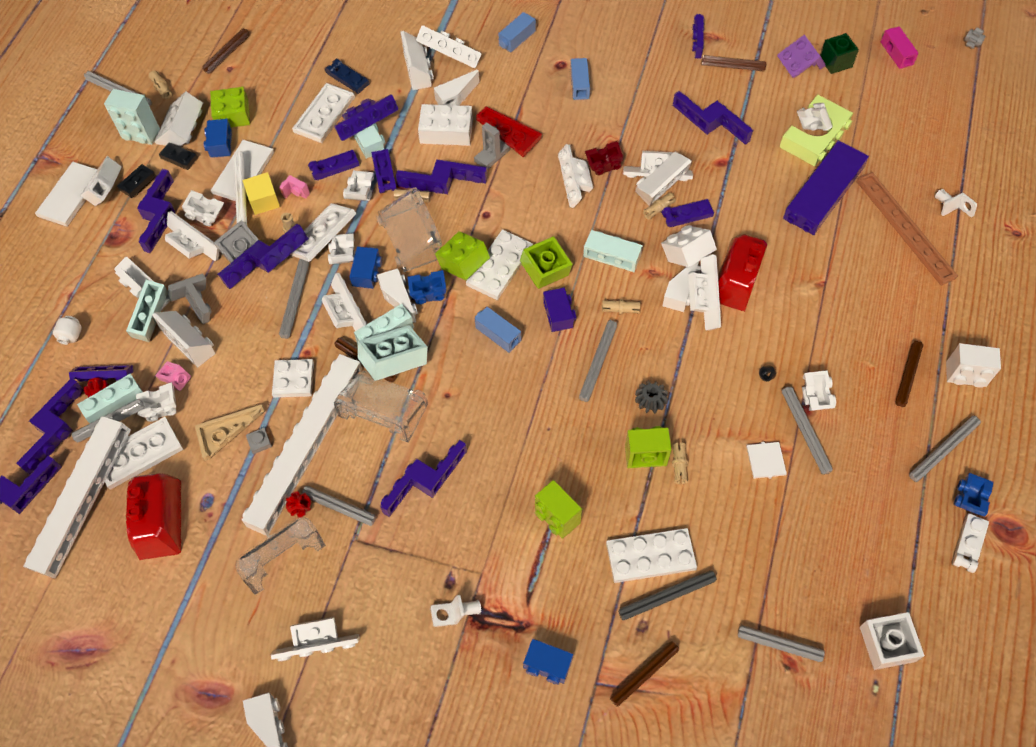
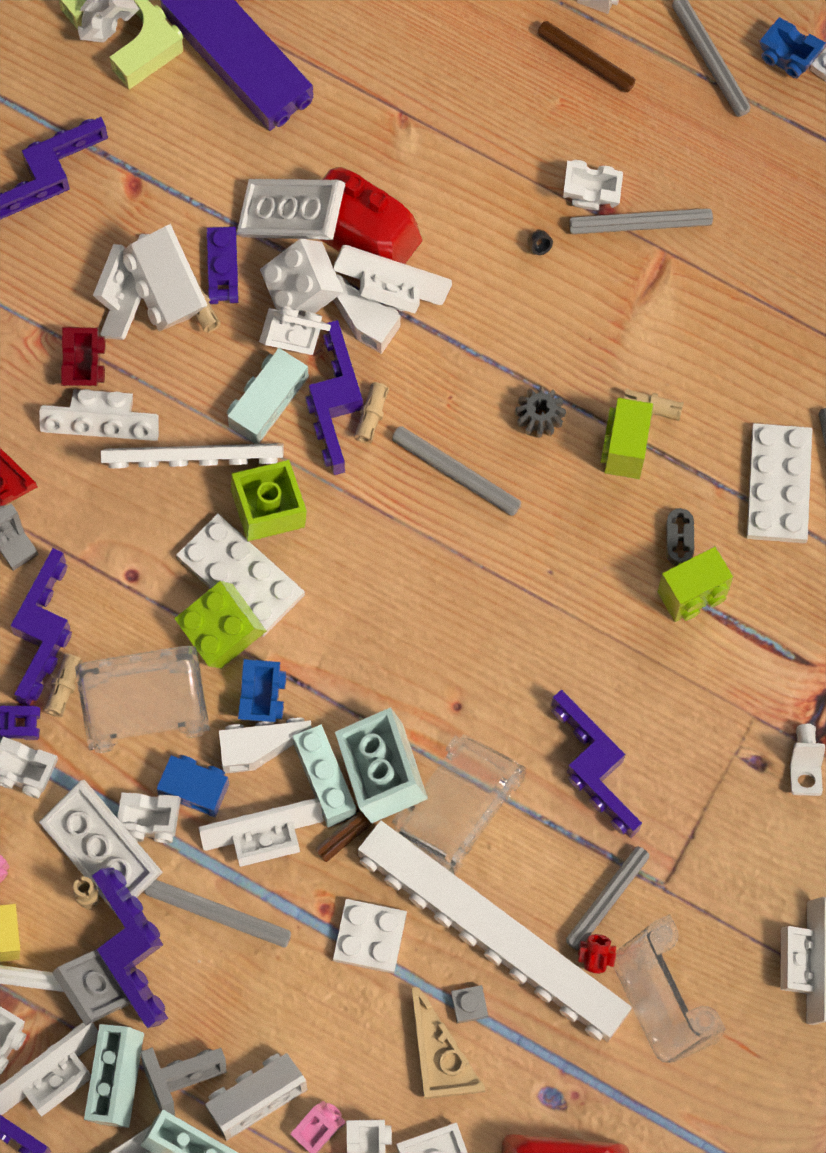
camera: 80 degrees left, 10 degrees up
(185, 265) = (114, 1075): none -> light aqua brick
(497, 329) = (366, 603): medium blue brick -> none
(558, 309) = (355, 504): dark purple brick -> none
(562, 219) = (180, 455): none -> white plate
(592, 496) = (673, 537): none -> dark grey beam
(623, 284) = (334, 398): none -> dark purple bracket
(655, 248) = (292, 331): none -> white bracket
(731, 228) = (290, 208): none -> white tile
(766, 460) = (672, 290): white piece -> none

